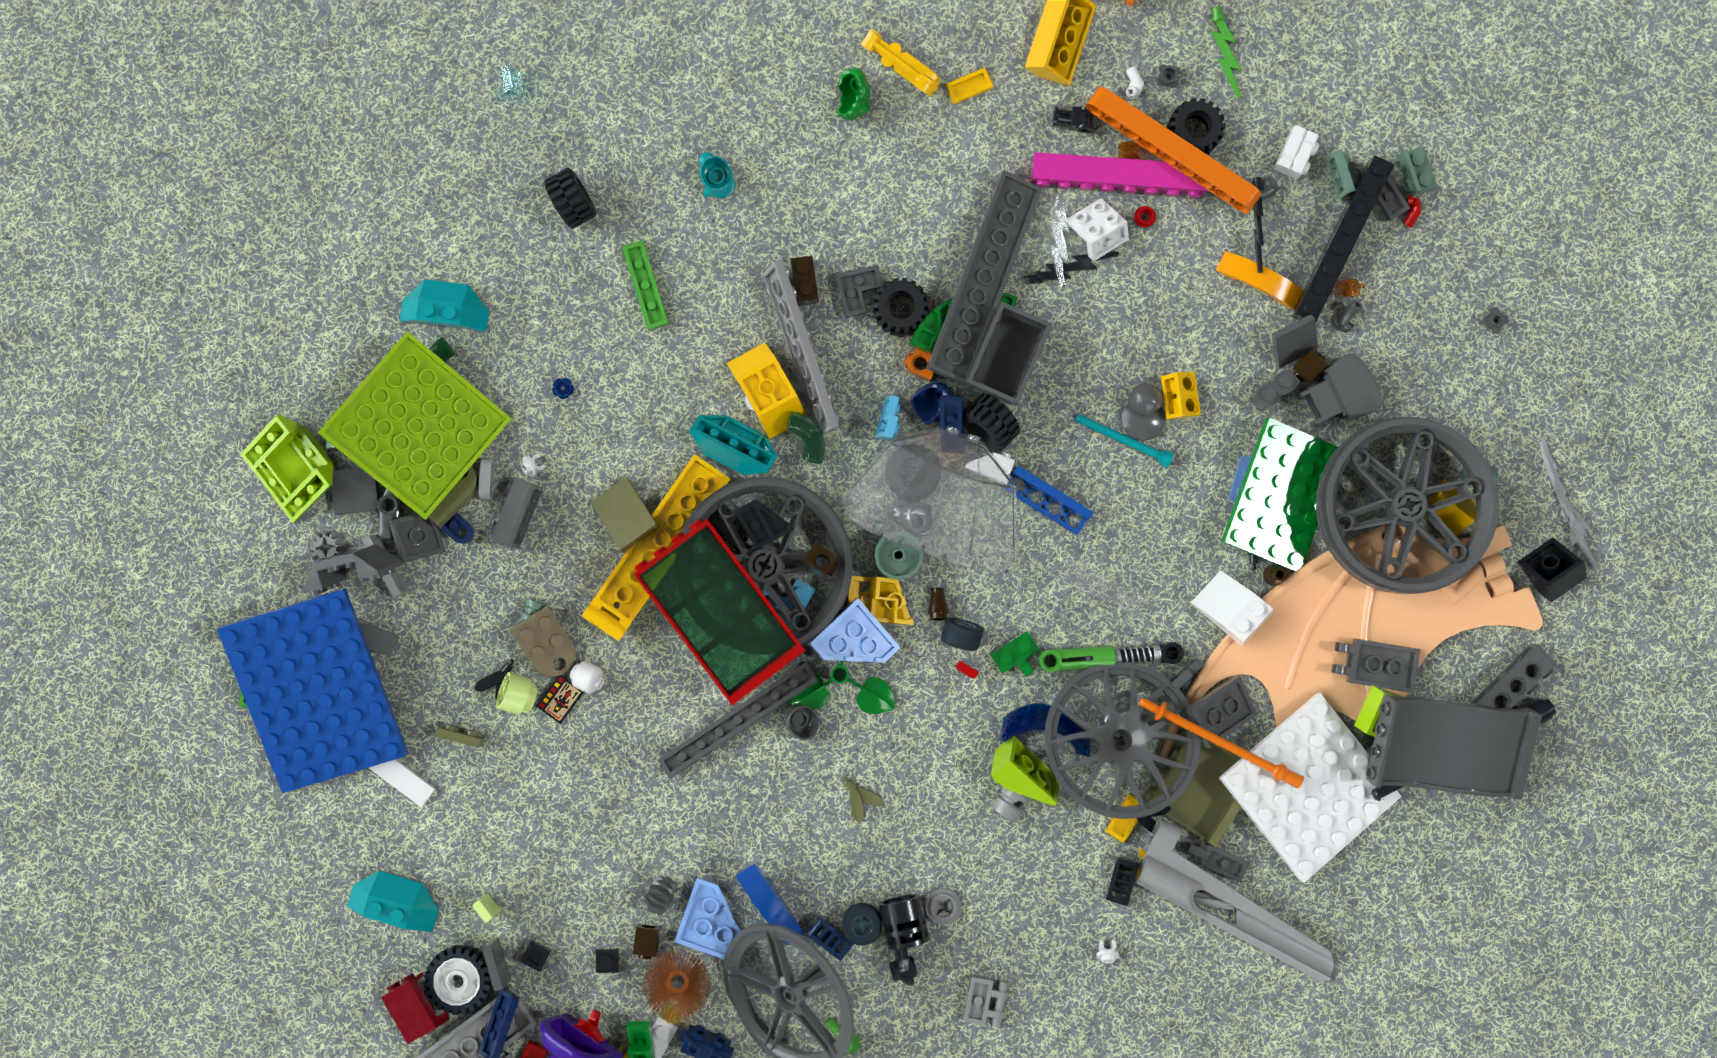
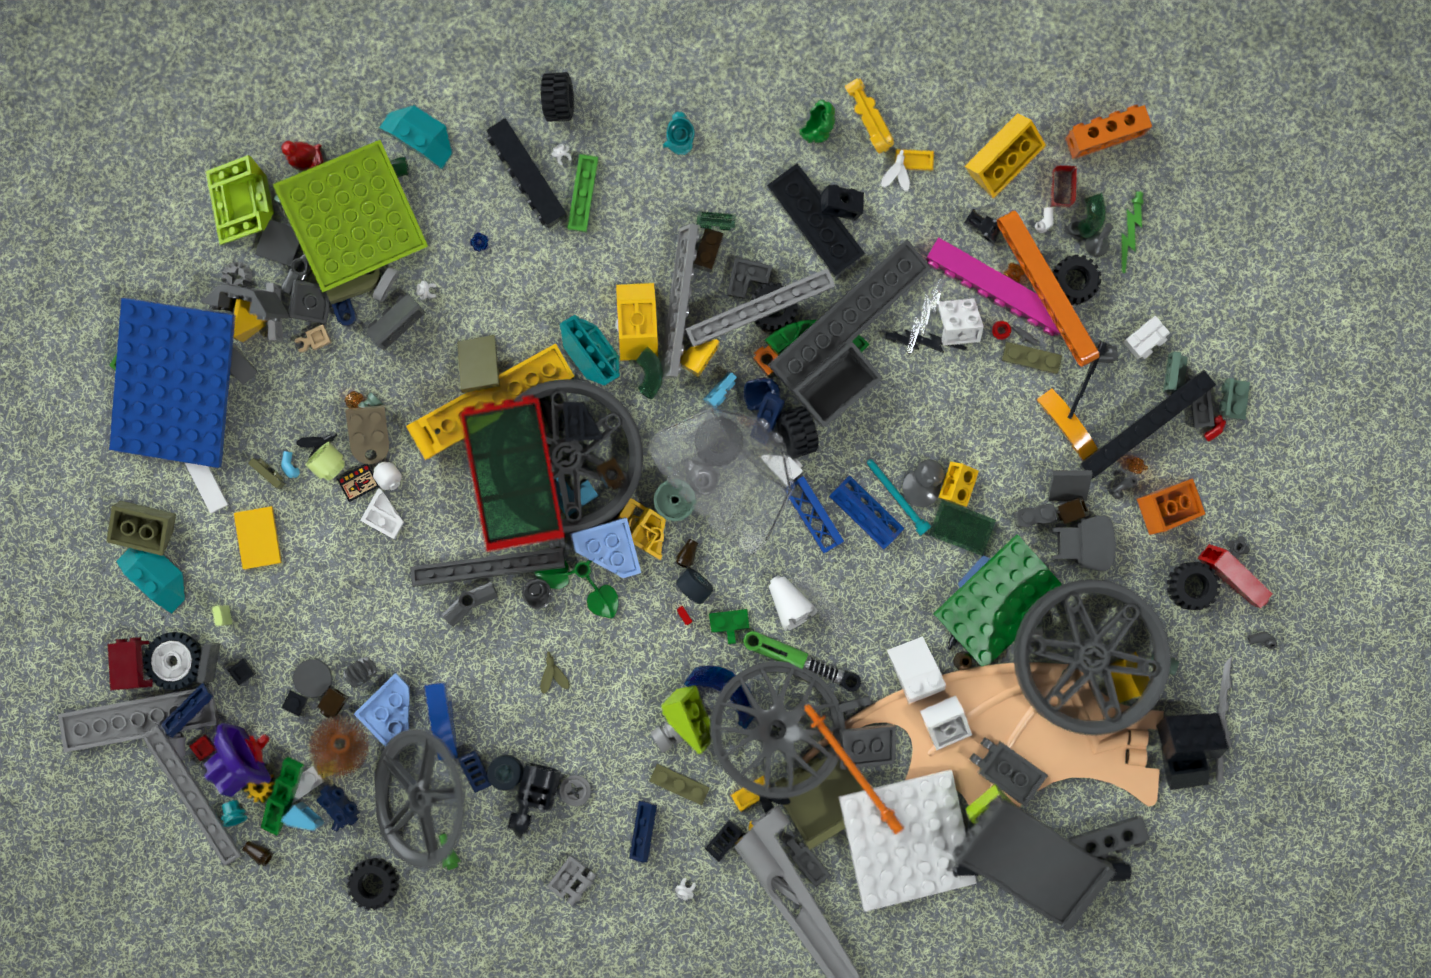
camera: 30 degrees right, 0 degrees up
(333, 387) = (302, 155): none -> red hair
(355, 858) = (140, 527): none -> olive slope
(360, 591) = (245, 323): none -> yellow slope
(442, 571) = (316, 338): none -> tan plate
(478, 719) = (287, 467): none -> medium azure arm
(483, 808) = (257, 537): none -> yellow tile
(512, 615) = (353, 399): none -> clear orange plate
(577, 293) = (526, 173): none -> black brick
(600, 253) = (560, 151): none -> white plate
(602, 720) = (383, 515): none -> white wing
(613, 925) = (312, 678): none -> dark grey tile
(729, 778) = (459, 609): none -> dark grey piece
(790, 248) = (721, 220): none -> clear green plate
(848, 395) = (698, 357): none -> yellow slope
(889, 313) = (760, 307): none -> light grey plate
(899, 196) = (823, 232): none -> black plate
(918, 164) = (833, 206): none -> black brick
(957, 104) = (899, 170): none -> white piece
(1034, 914) = (643, 831): none -> dark blue plate
(1047, 846) = (679, 784): none -> olive plate
(1069, 603) = (790, 603): none -> white cone
(1100, 474) = (864, 514): none -> blue fence
(1145, 34) = (1061, 168): none -> red piece
(1171, 210) = (1025, 335): none -> dark grey helmet
(1183, 54) = (1095, 216): none -> clear green cylinder
(1189, 230) = (1031, 358): none -> olive plate
(1200, 80) = (1099, 243): none -> dark grey piece
(1205, 438) = (962, 527): none -> clear green plate
(1290, 646) = (946, 722): none -> white slope
(1407, 313) = (1171, 506): none -> orange slope
(1488, 379) = (1178, 591): none -> black tyre
(1507, 350) = (1235, 575): none -> slope
(1548, 537) = (1192, 737): none -> black brick
(1567, 400) = (1264, 638): none -> dark grey arm

